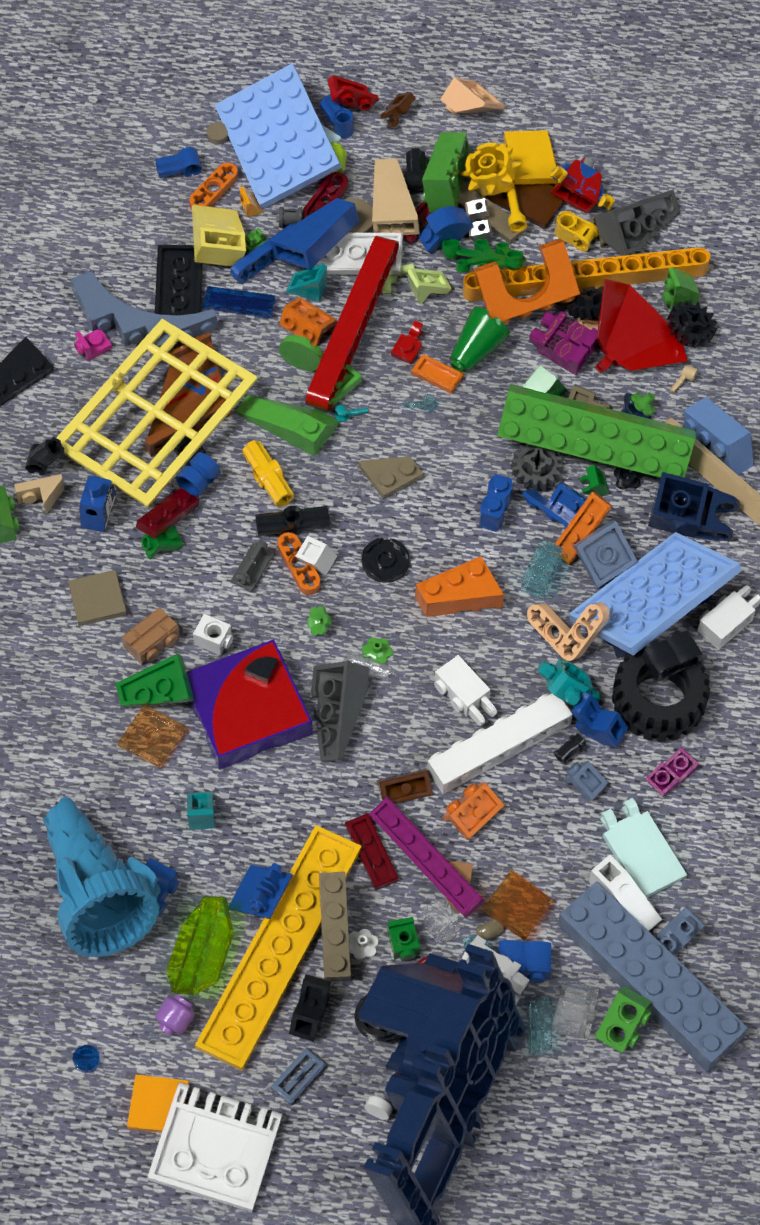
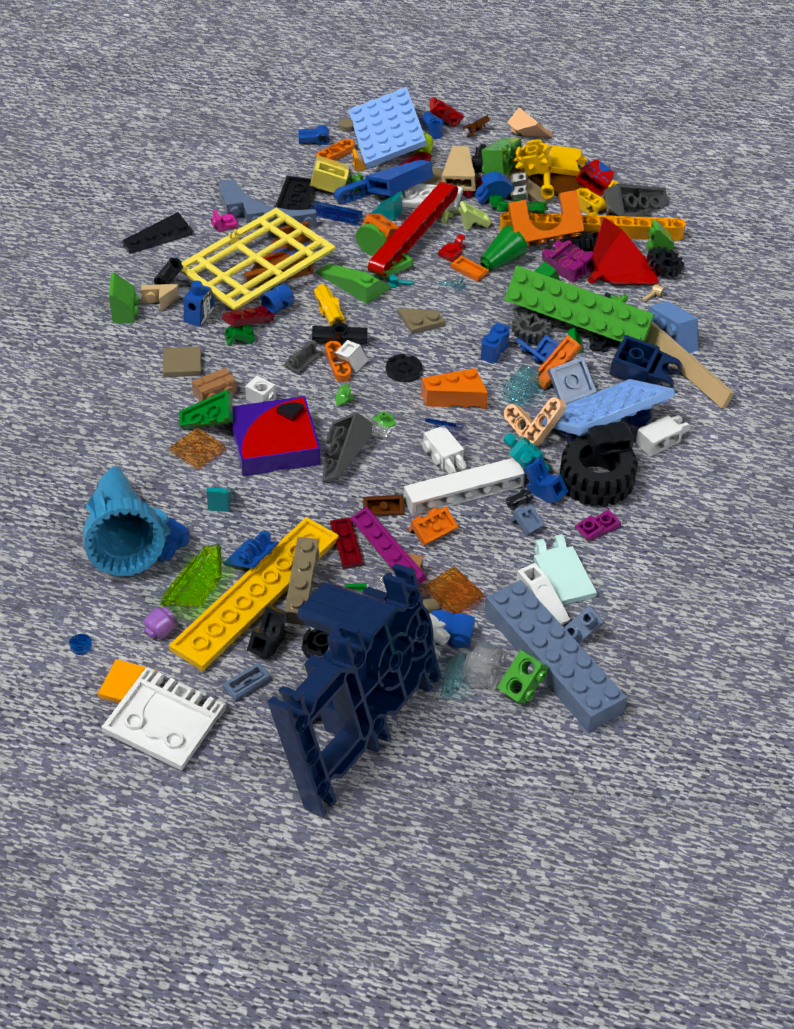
camera: 10 degrees right, 15 degrees down
(457, 647) = (444, 422): none -> clear blue piece

